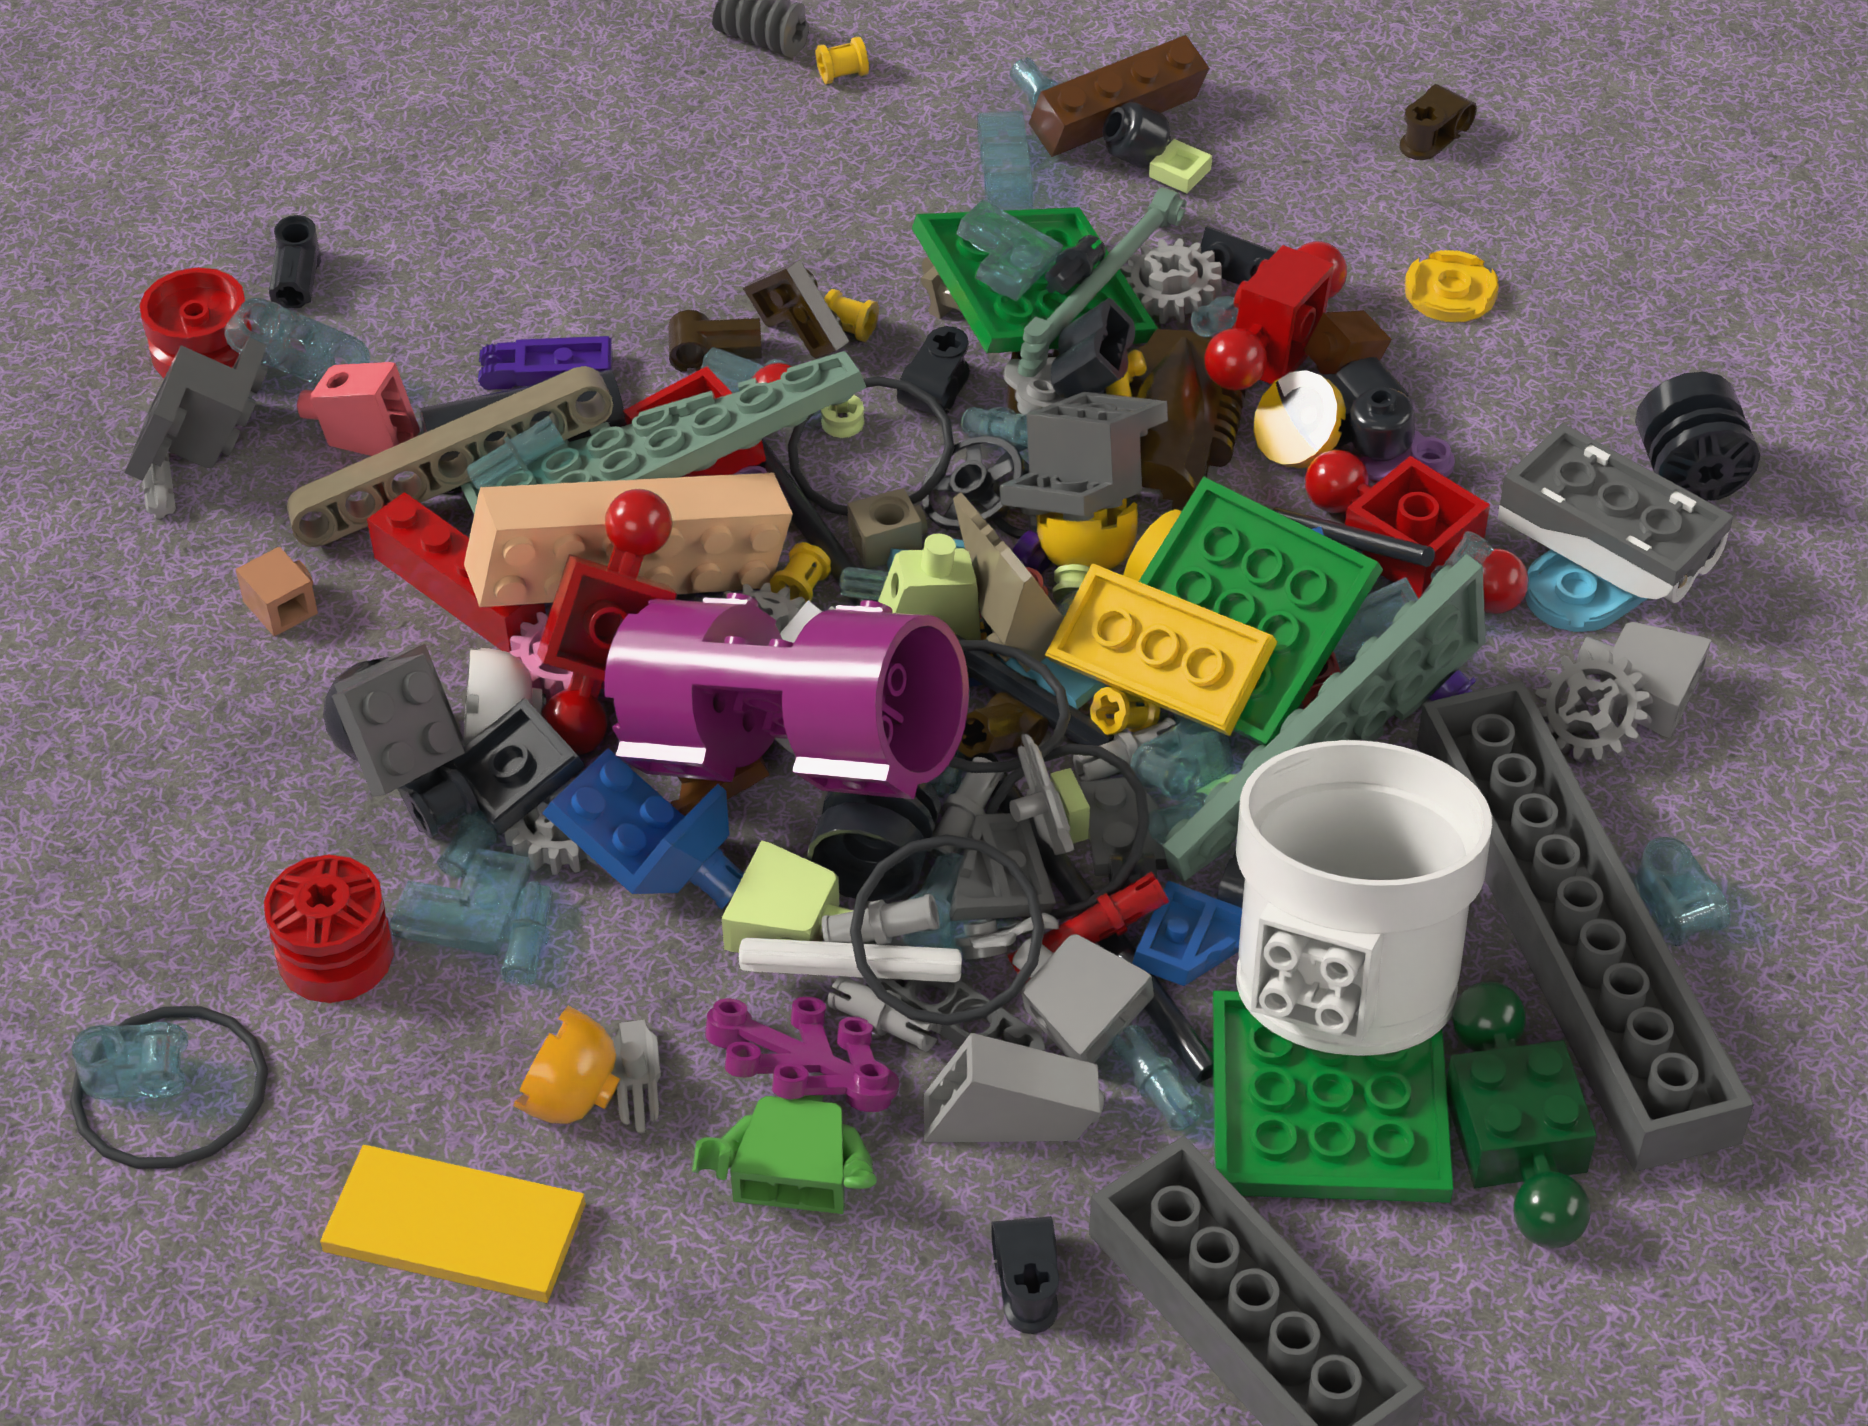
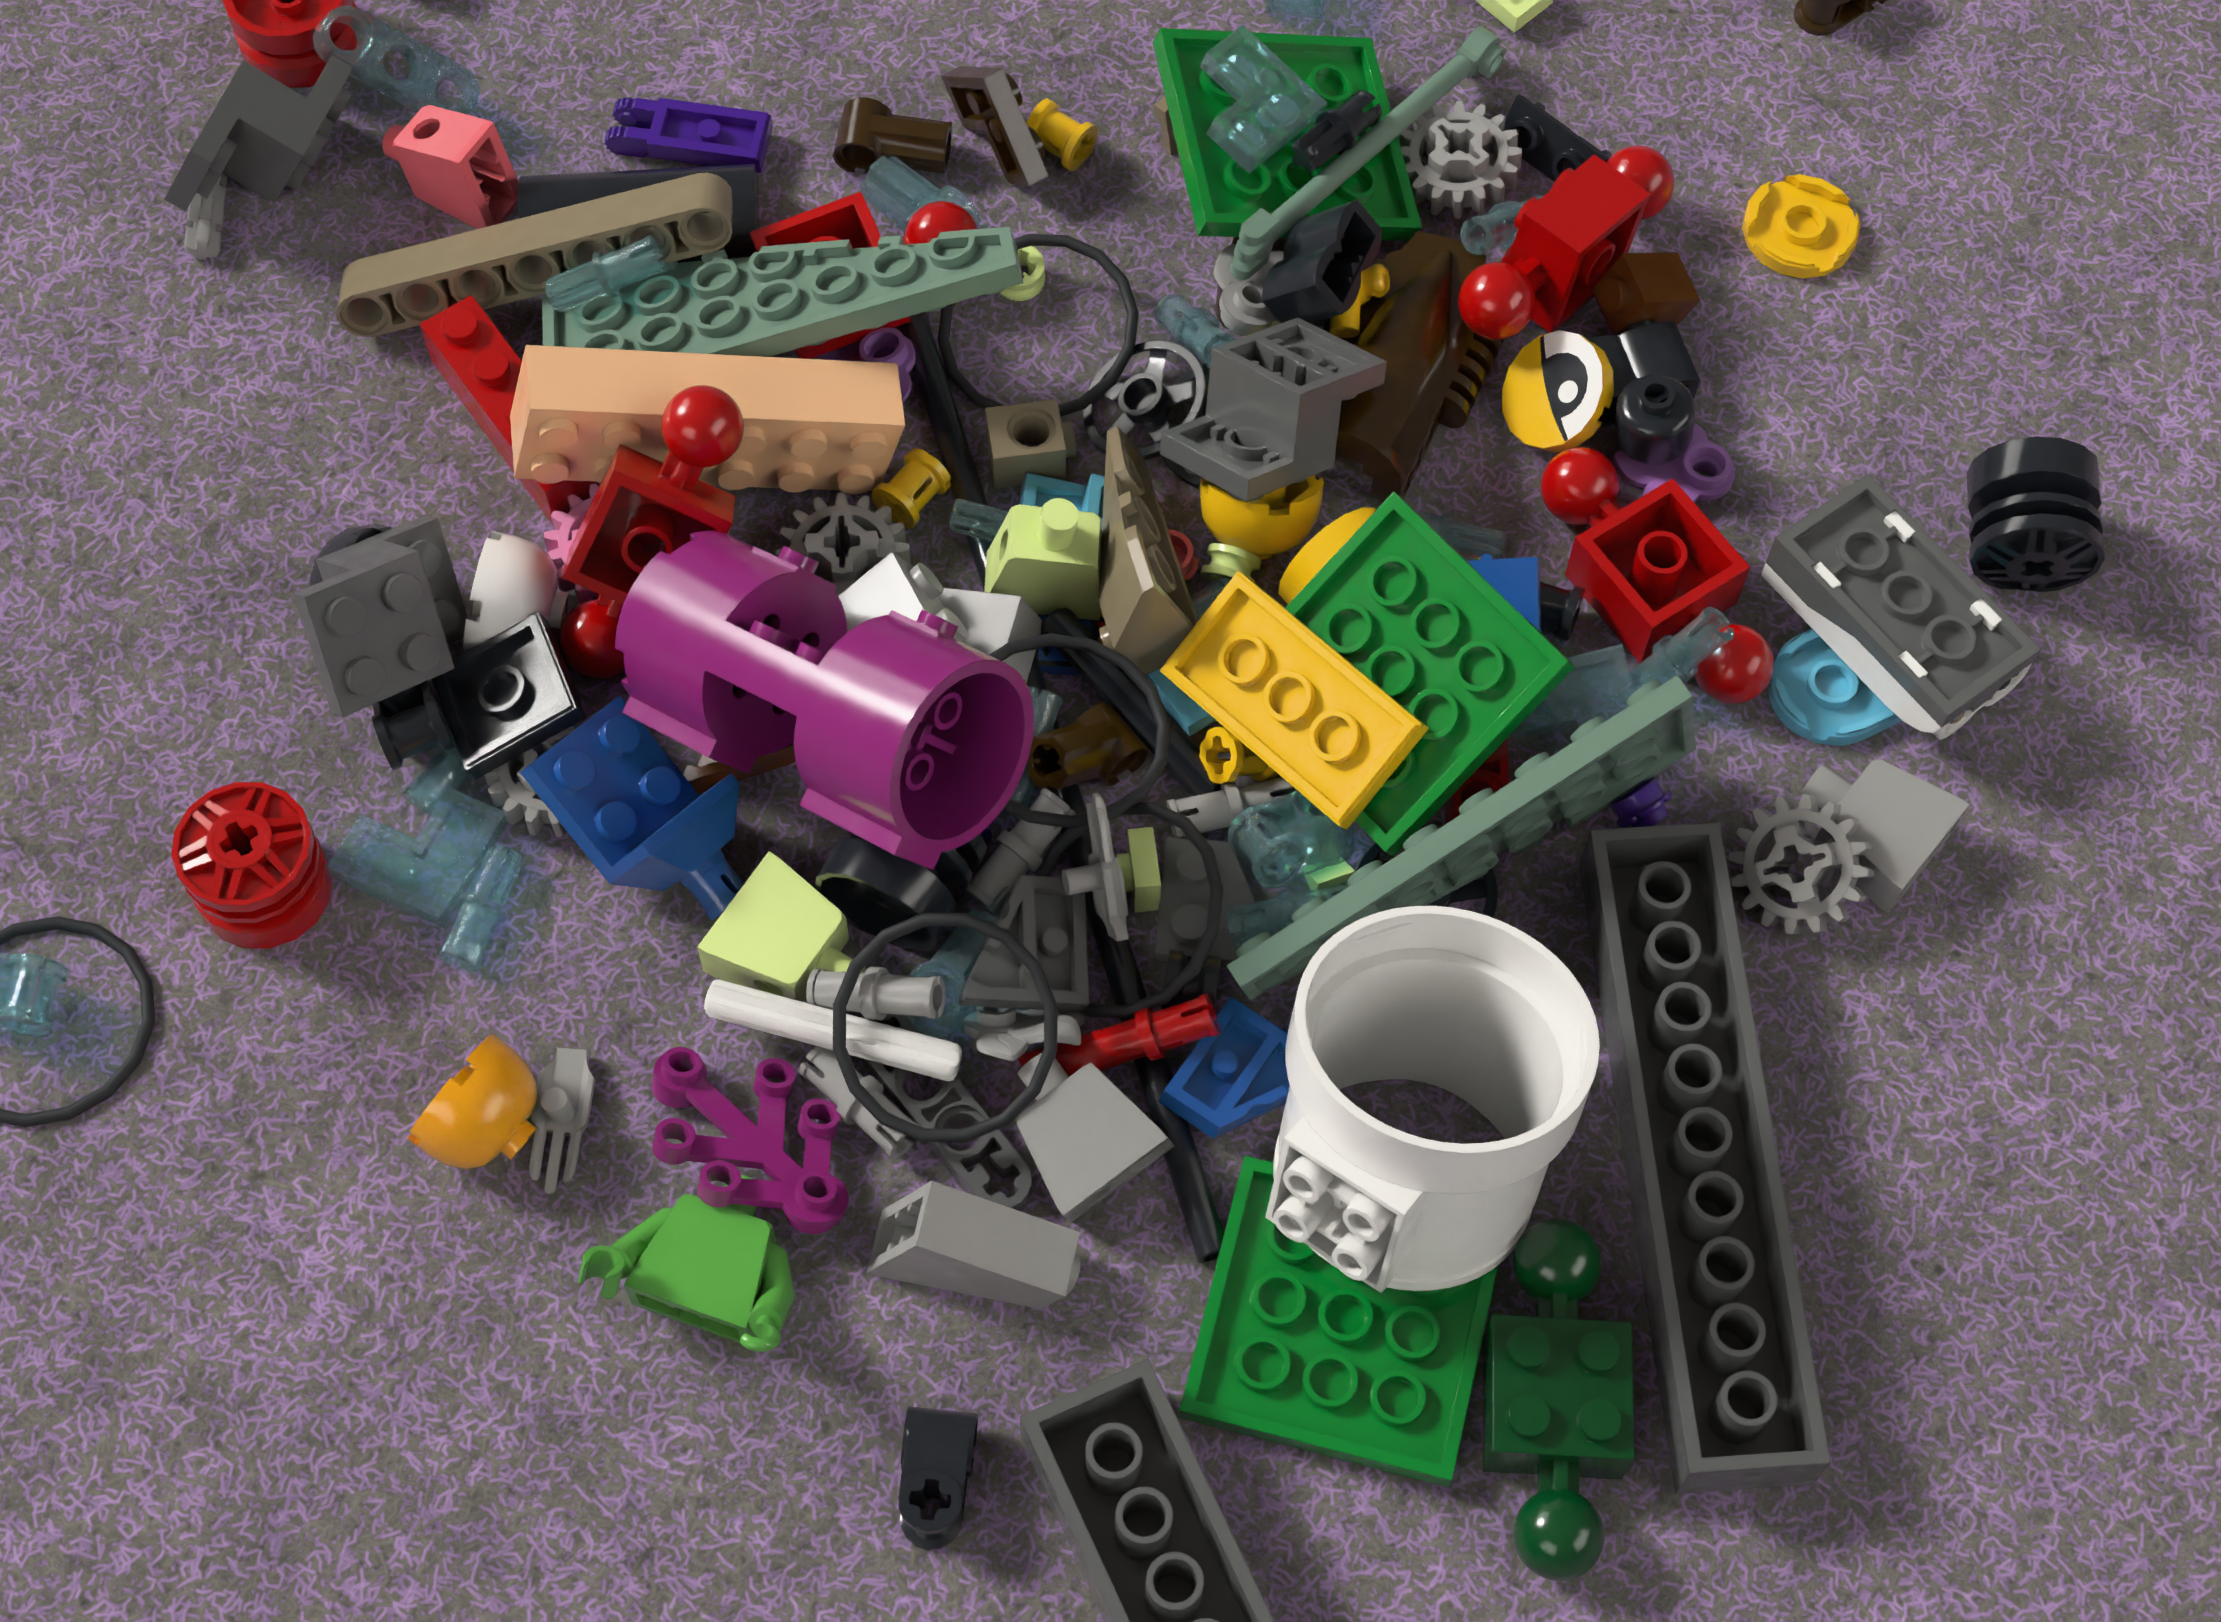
camera: 10 degrees right, 15 degrees up
(277, 590) = (305, 391): nougat brick -> none
(454, 1223) = (312, 1267): yellow tile -> none
(937, 369) = (1145, 234): black piece -> none
(1030, 552) = (1185, 512): dark purple plate -> none
(1156, 1078) = (1150, 1253): clear light blue pin -> none
(1365, 539) = (1575, 572): black bar -> none
(1679, 891) = (1838, 1149): clear light blue piece -> none

